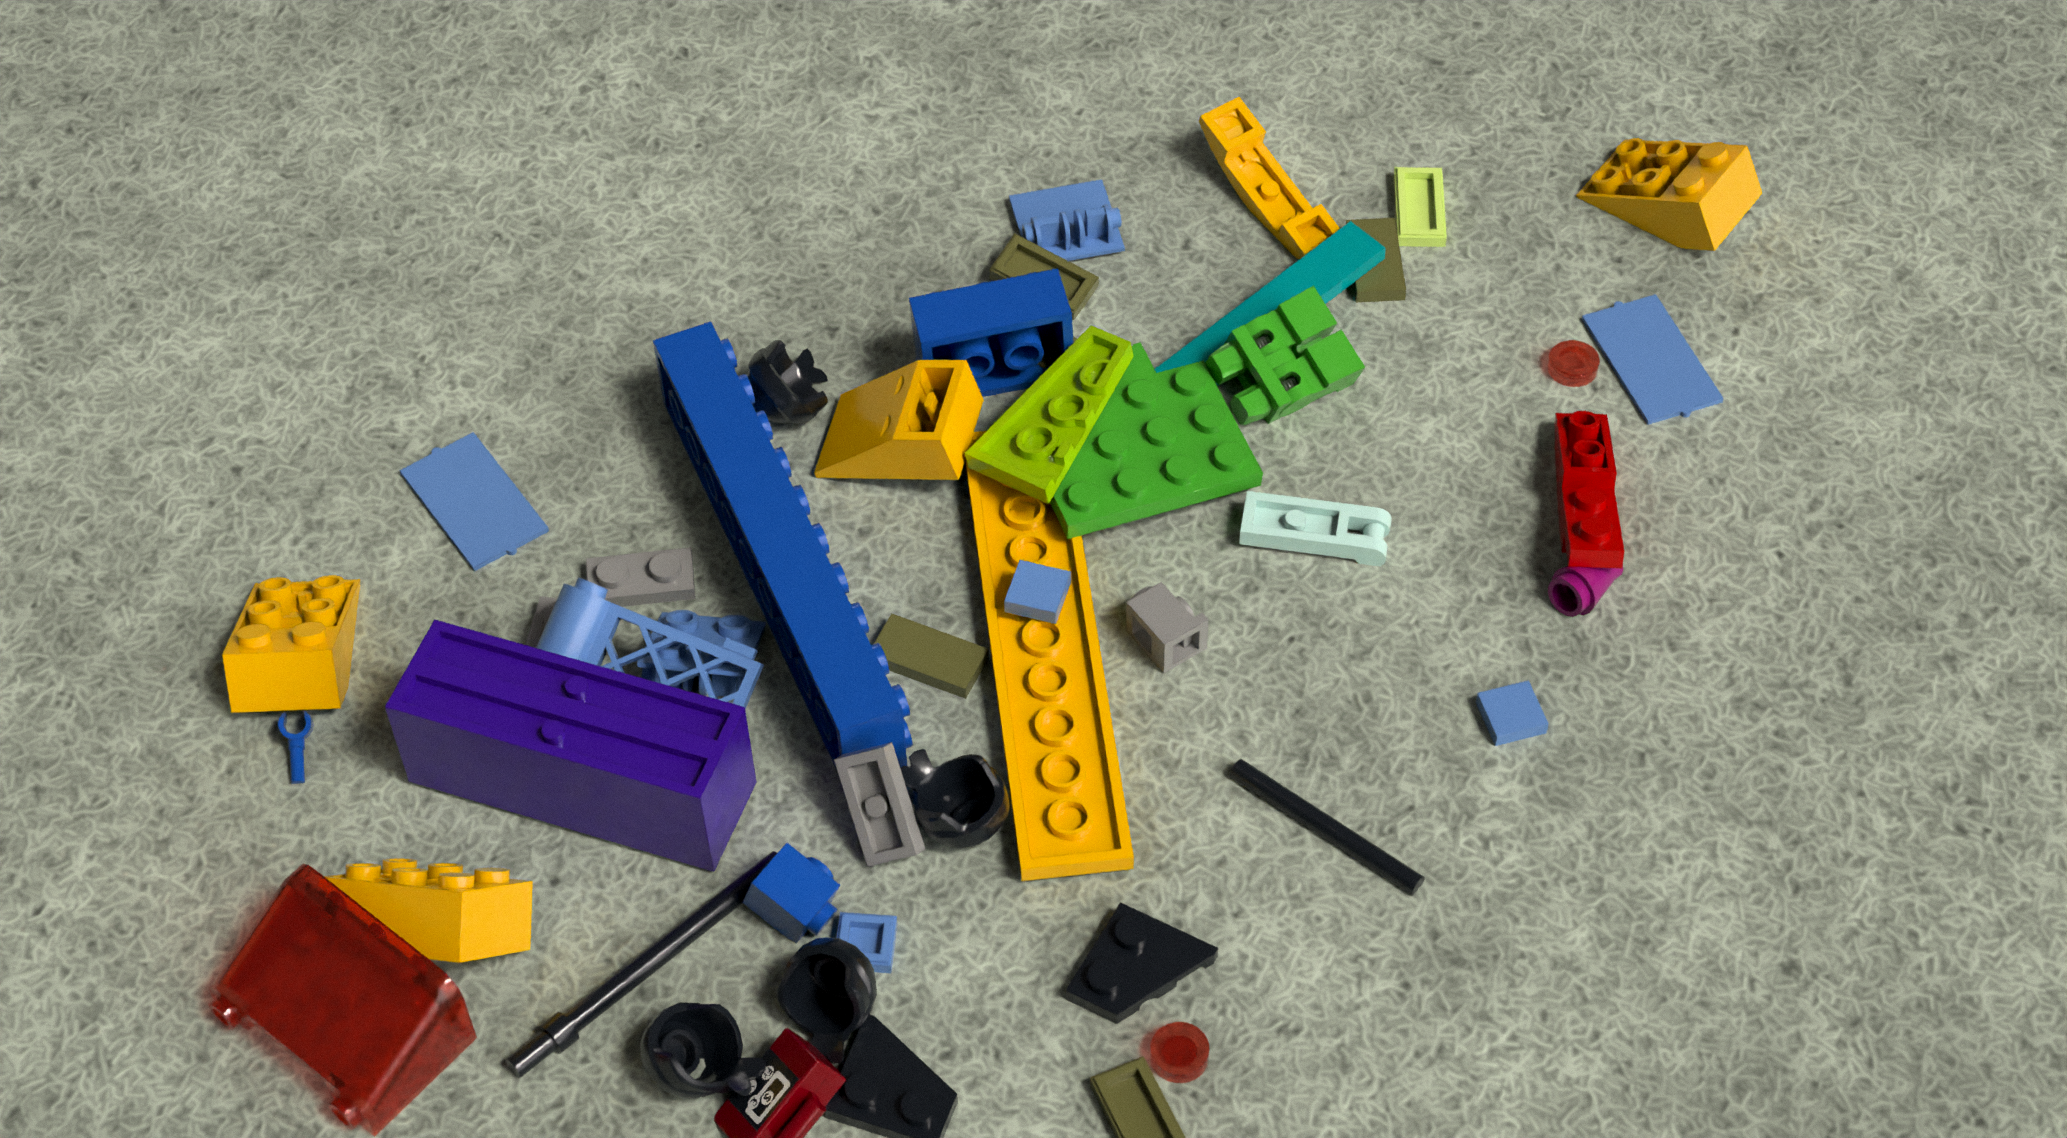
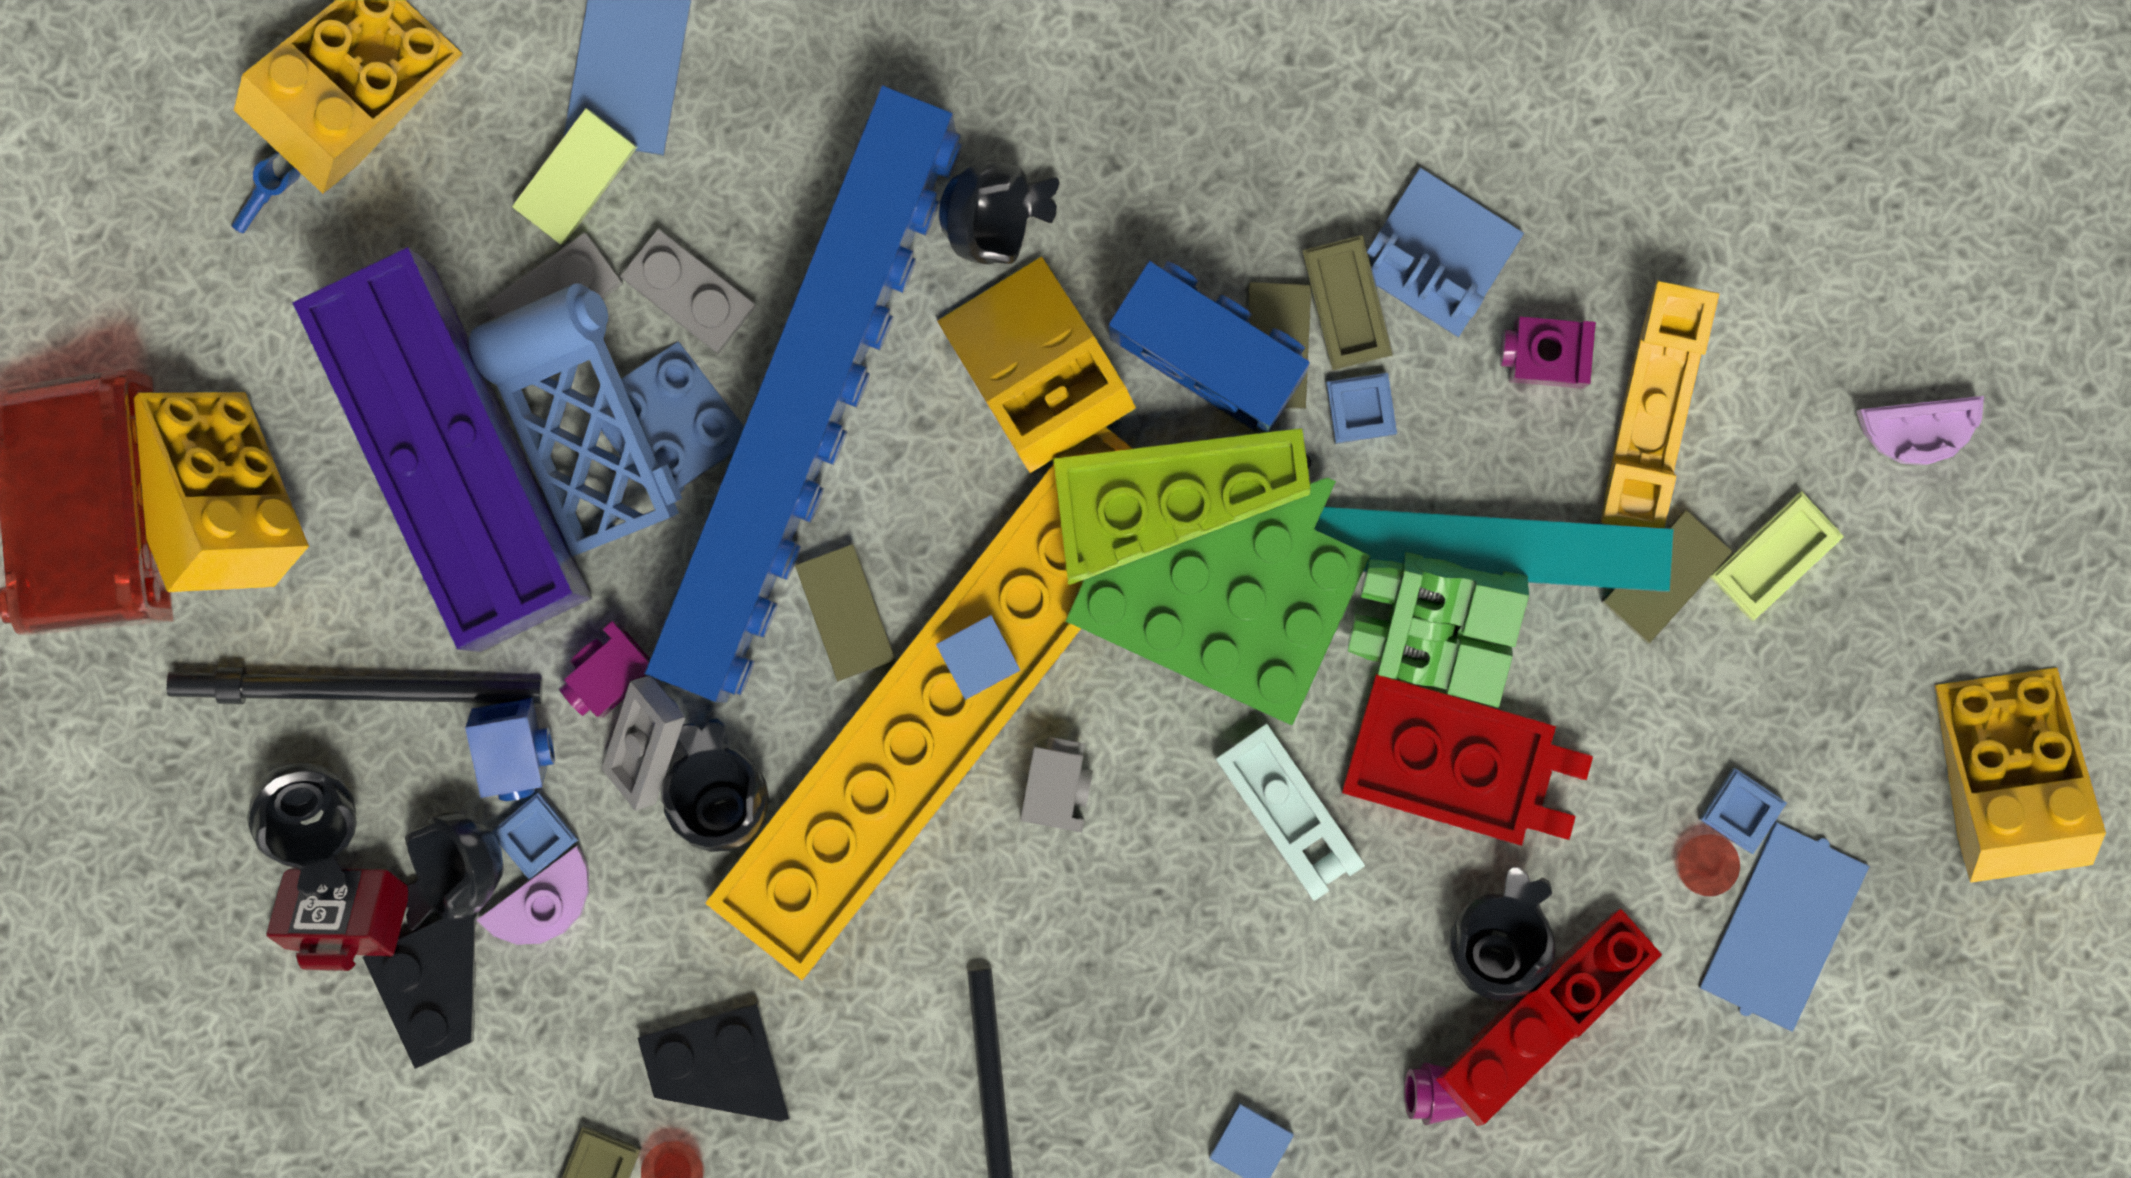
camera: 45 degrees right, 35 degrees up
(502, 575) = (574, 176): none -> yellowish green tile
(811, 800) = (604, 672): none -> magenta brick
(915, 975) = (544, 904): none -> lavender plate
(1113, 316) = (1361, 408): none -> medium blue tile
(1184, 210) = (1574, 359): none -> magenta brick
(1381, 426) = (1459, 763): none -> red tile
(1416, 97) = (1922, 430): none -> lavender plate
(1515, 477) = (1525, 952): none -> black hat
(1556, 323) = (1742, 811): none -> medium blue tile

